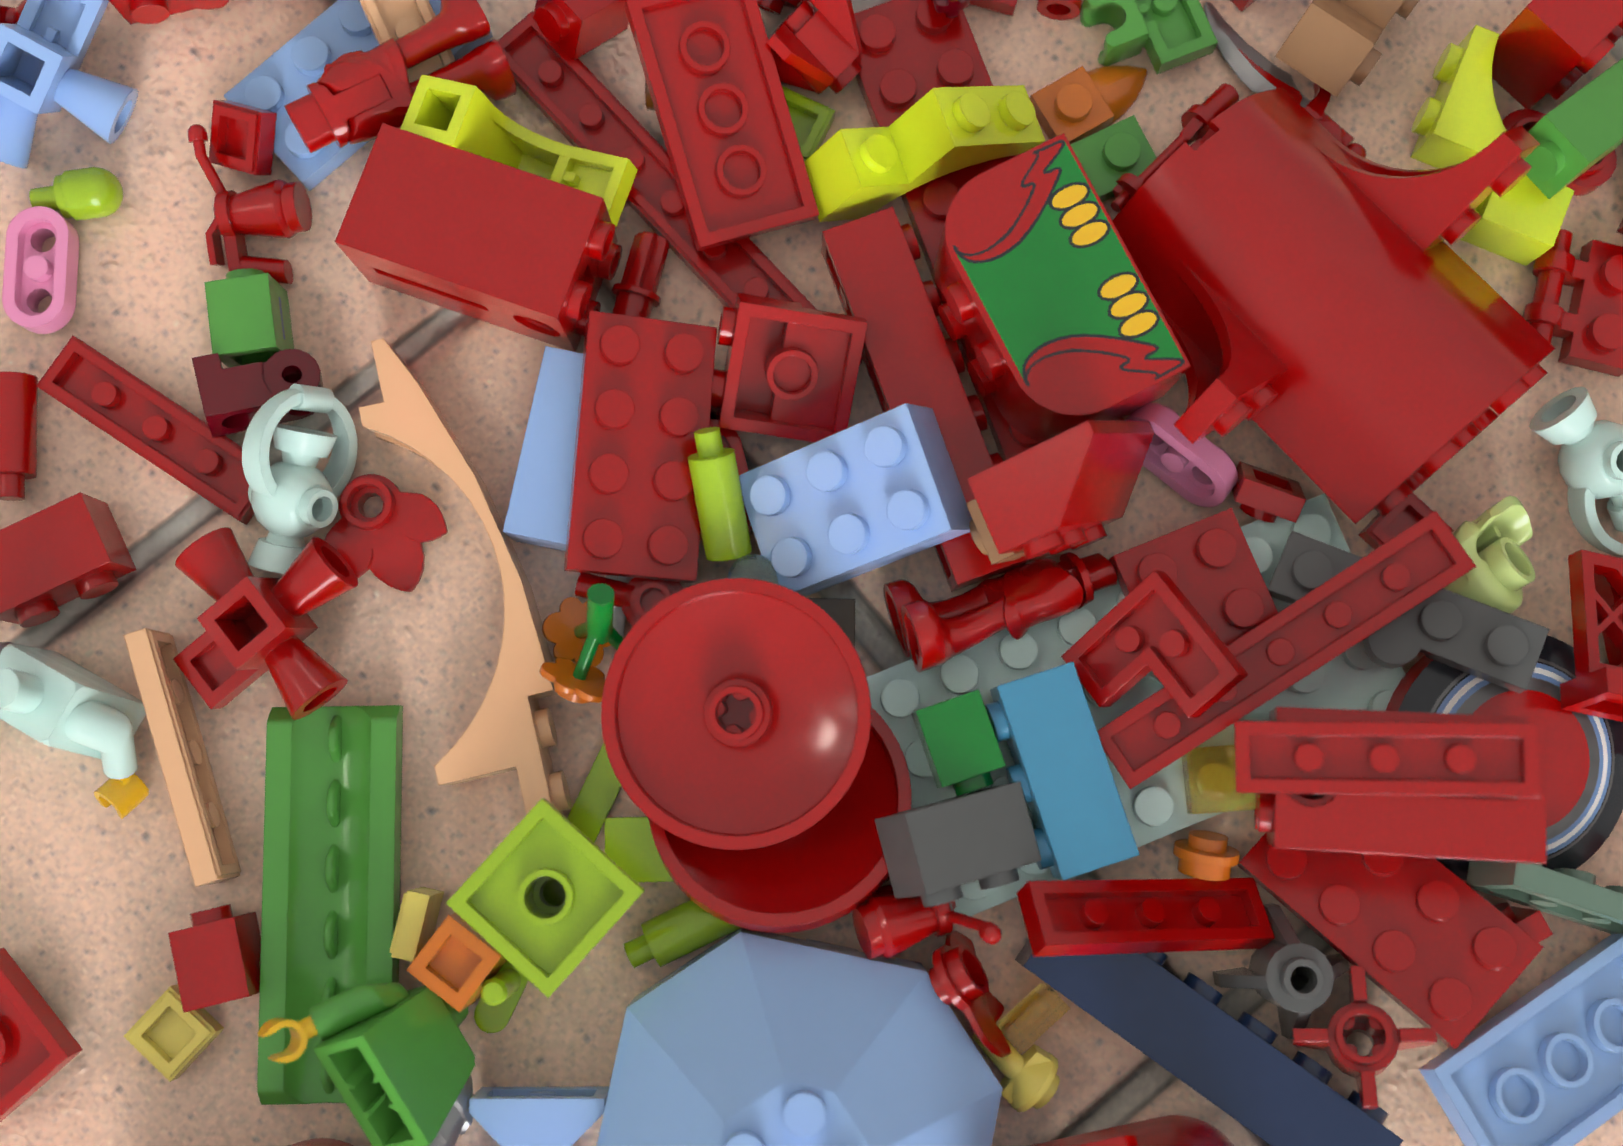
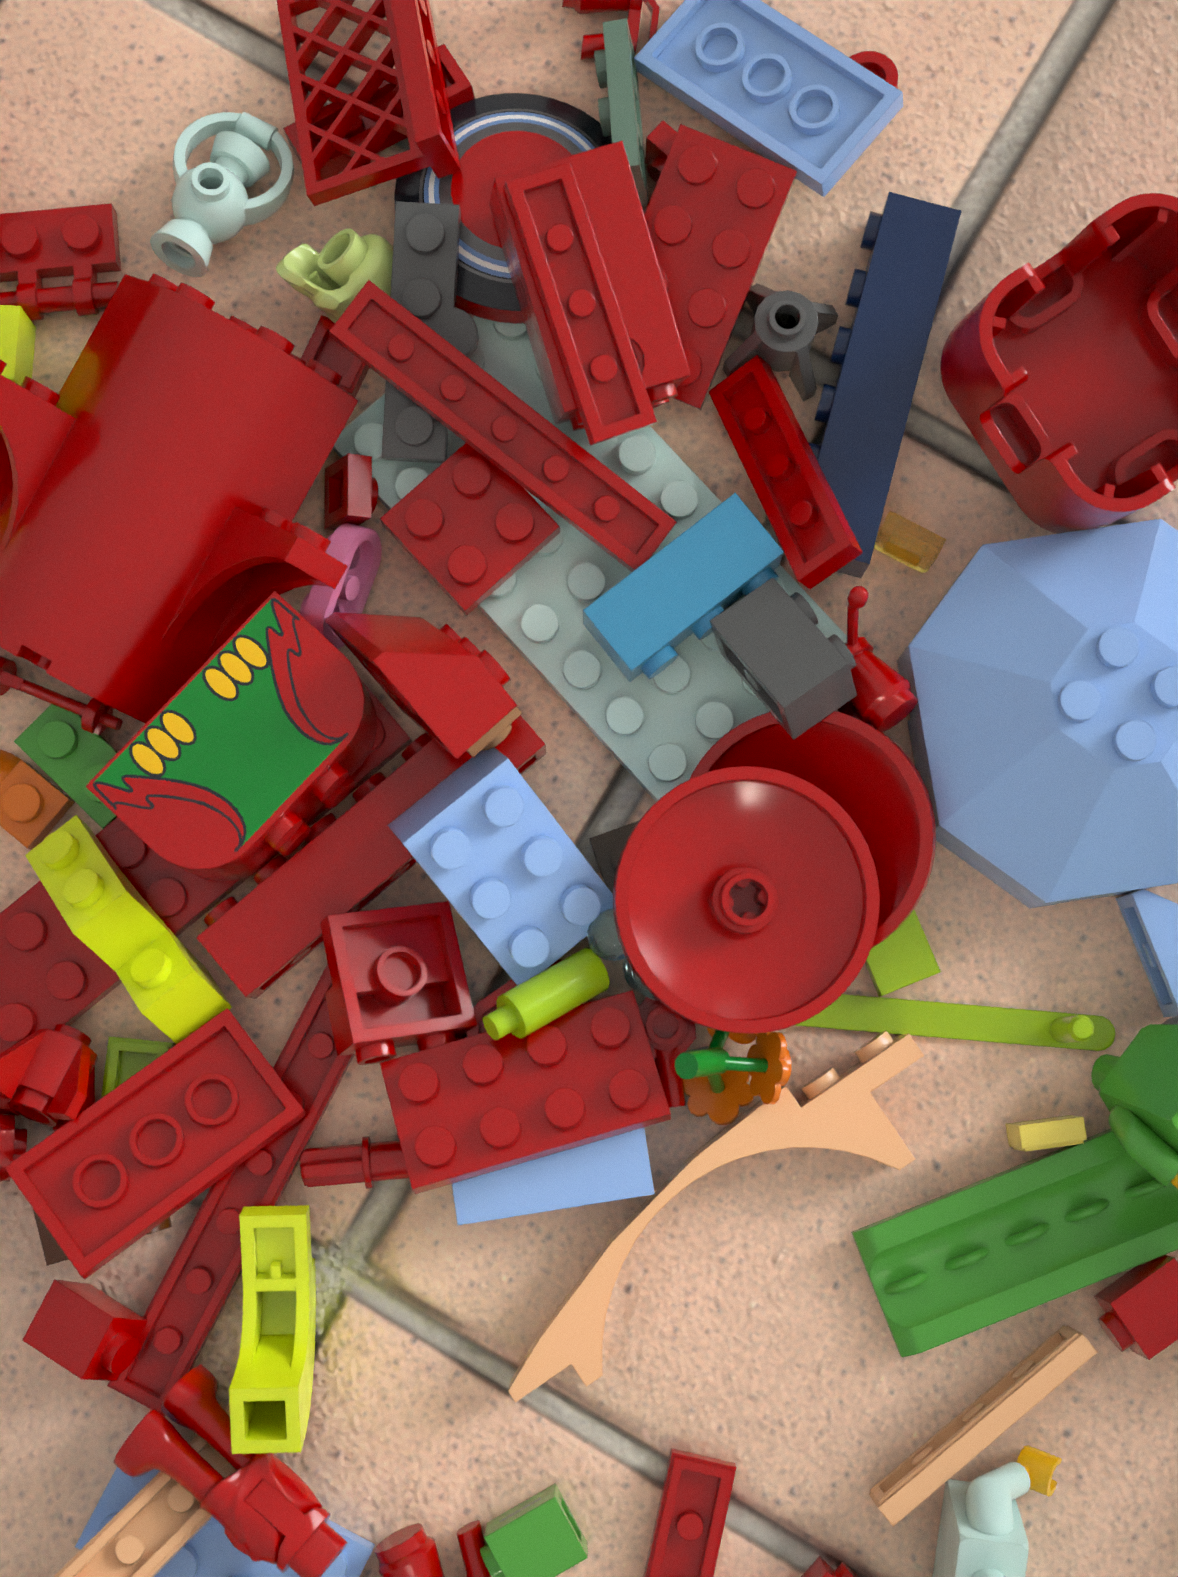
camera: 110 degrees left, 0 degrees up
(237, 393) = (607, 1499): dark red leg -> none
(261, 623) = (827, 1396): red brick -> none
(292, 494) = (689, 1415): light aqua piece -> none
(391, 540) = (703, 1313): red plate -> none
(456, 963) = (1063, 1074): orange brick -> none
(479, 237) = (372, 1333): red brick -> none
(508, 903) = (1015, 1003): lime plant -> none
(676, 935) = (962, 890): lime cylinder -> none
(959, 742) = (692, 690): green brick -> none
(962, 981) = (905, 610): red plate -> none
(1015, 602) = (541, 688): red piece -> none
(1028, 1078) = (966, 529): light yellow plate -> none
(1157, 633) = (527, 541): red plate -> none
(1206, 855) = (705, 439): orange plate -> none
(1211, 781) = (638, 454): clear yellow tile -> none
(1371, 1021) = (802, 238): red brick -> none

